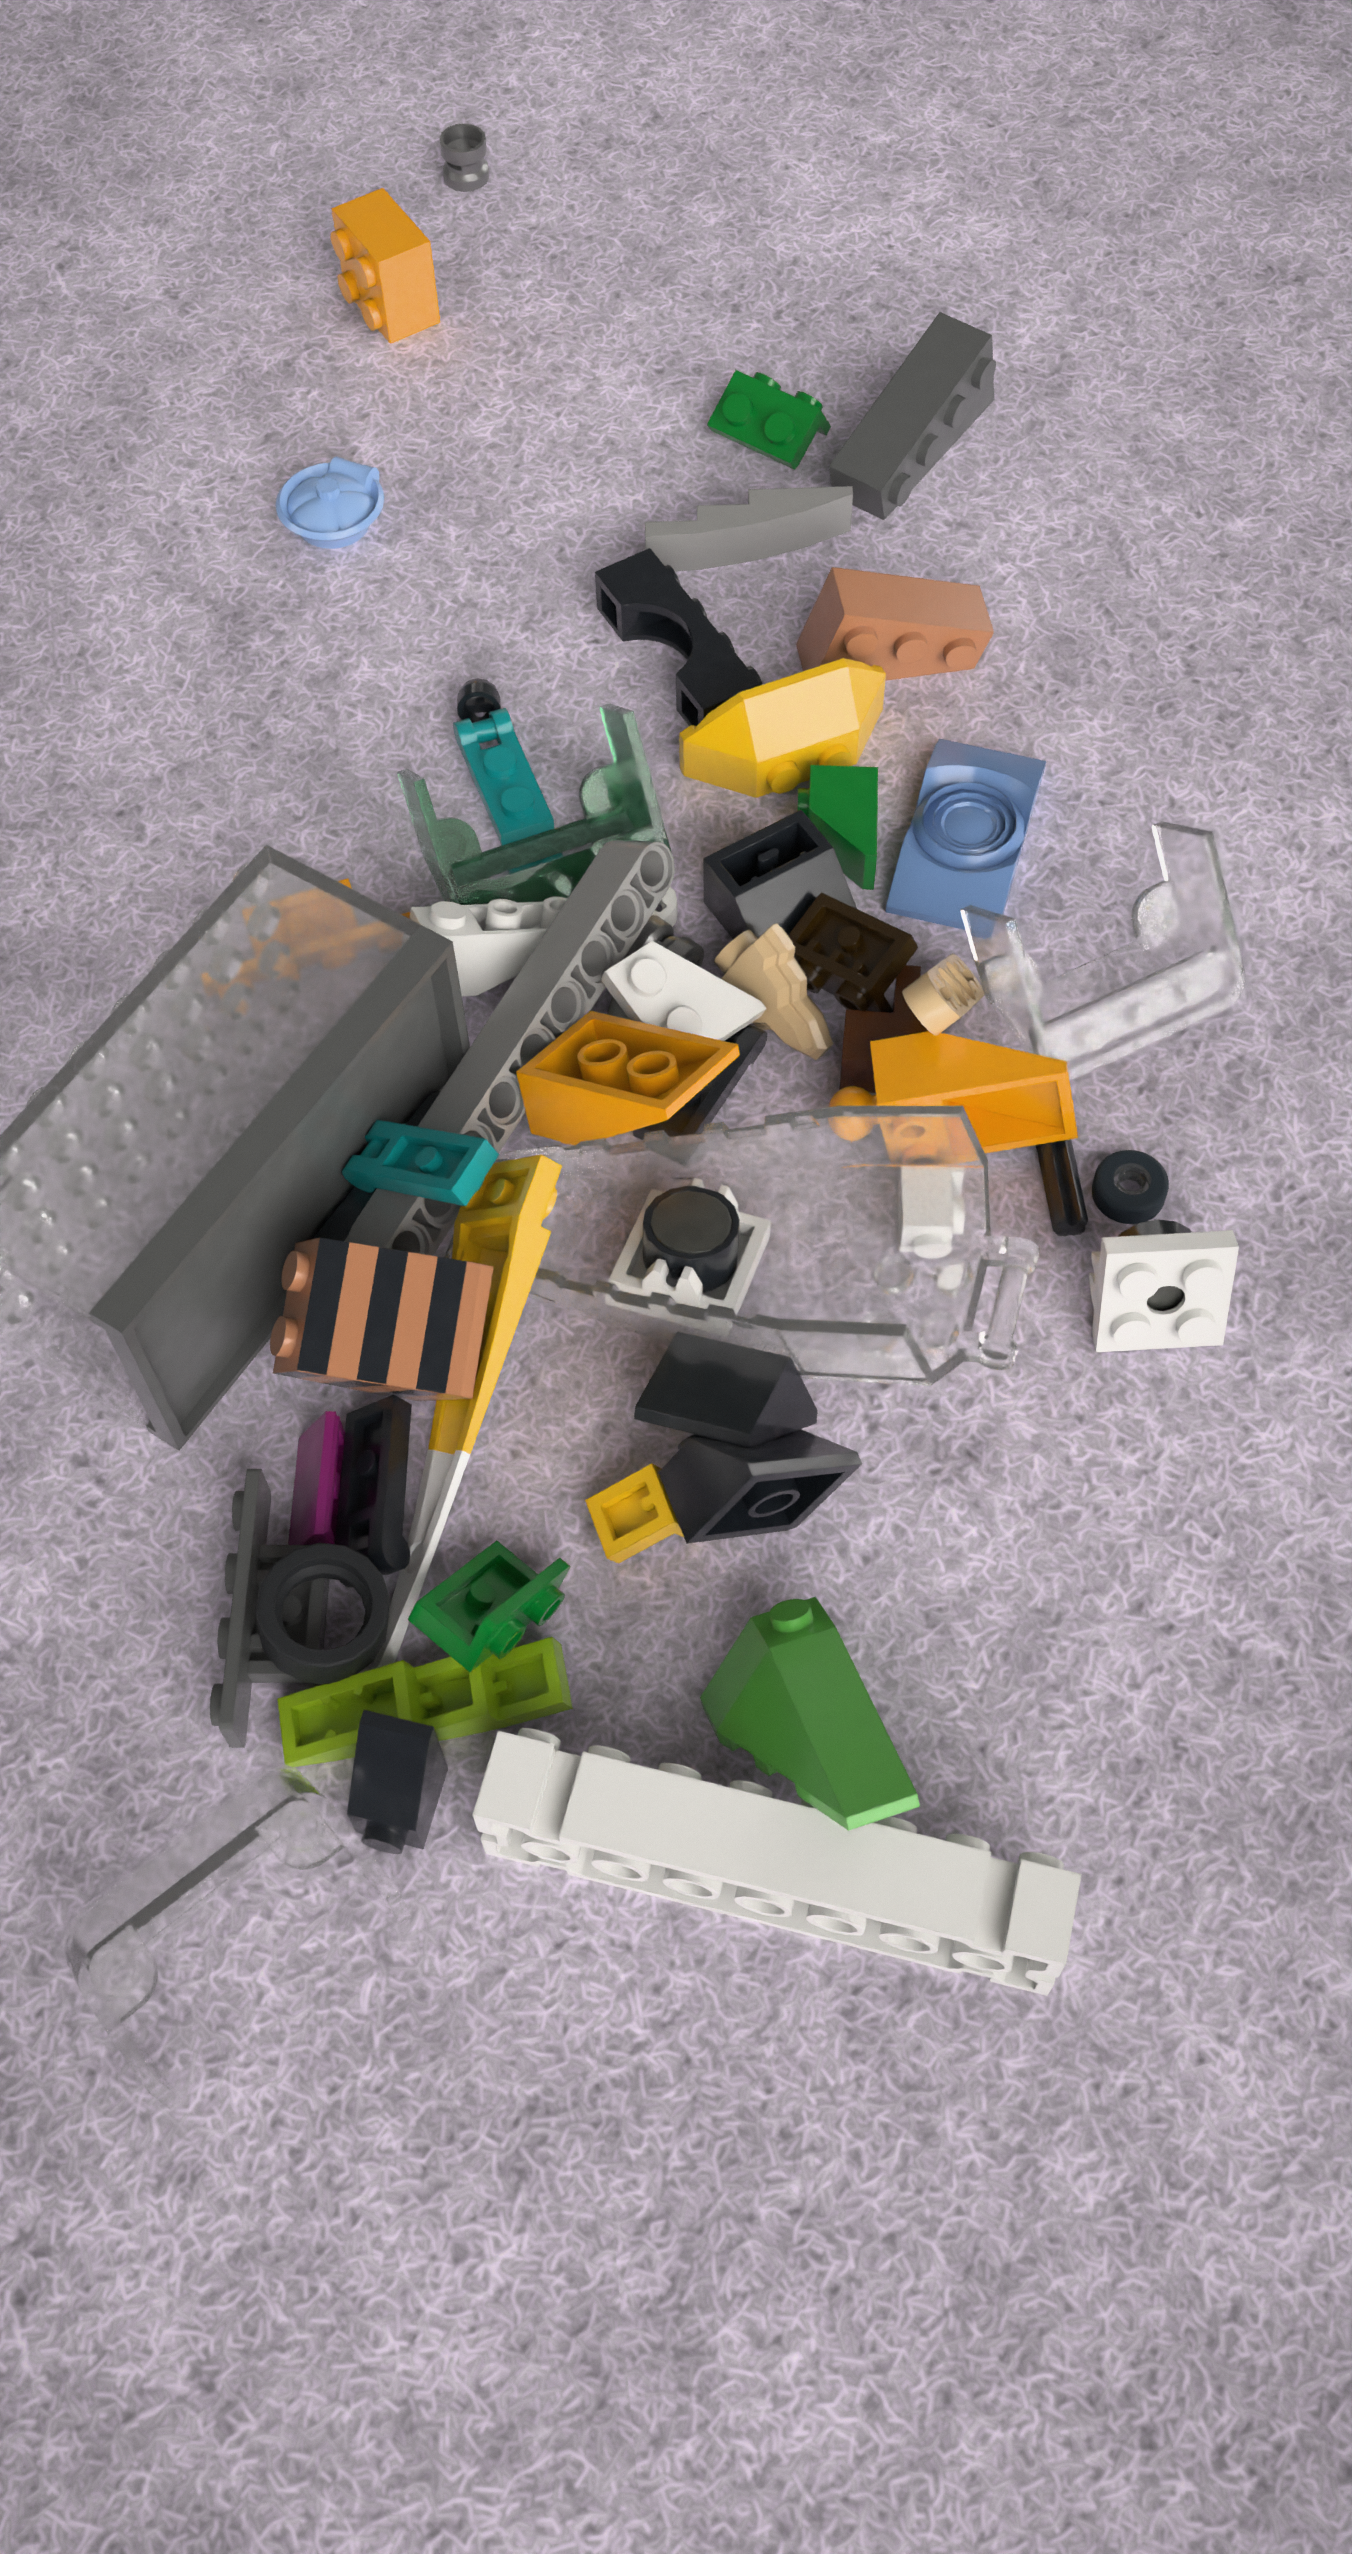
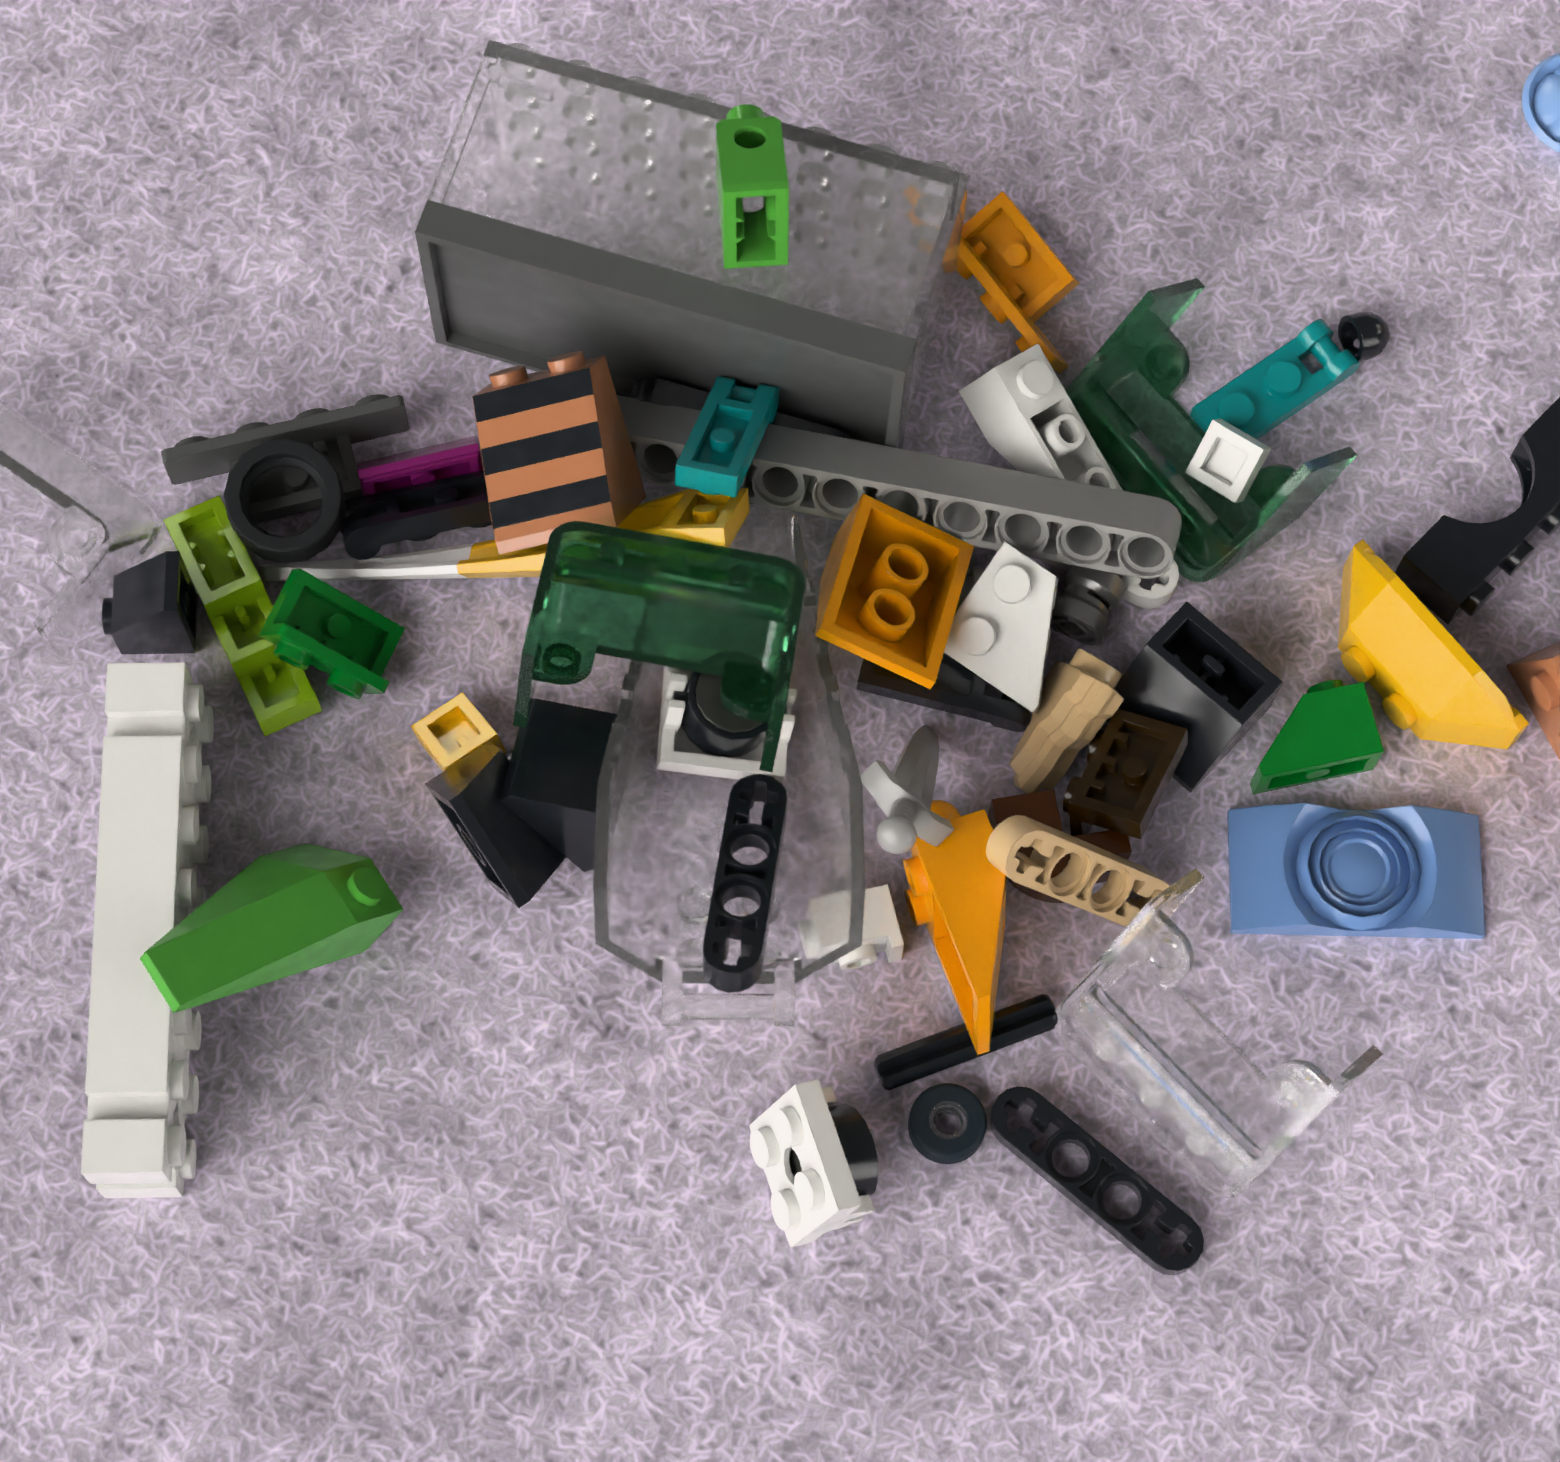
camera: 70 degrees right, 10 degrees up
(218, 995) = (752, 165): none -> bright green torso
(566, 814) = (1228, 460): none -> white plate
(605, 1218) = (665, 607): none -> clear green windscreen
(862, 1087) = (908, 795): none -> light grey sword
(882, 1257) = (747, 881): none -> black beam
(1202, 1081) = (1102, 1172): none -> black beam

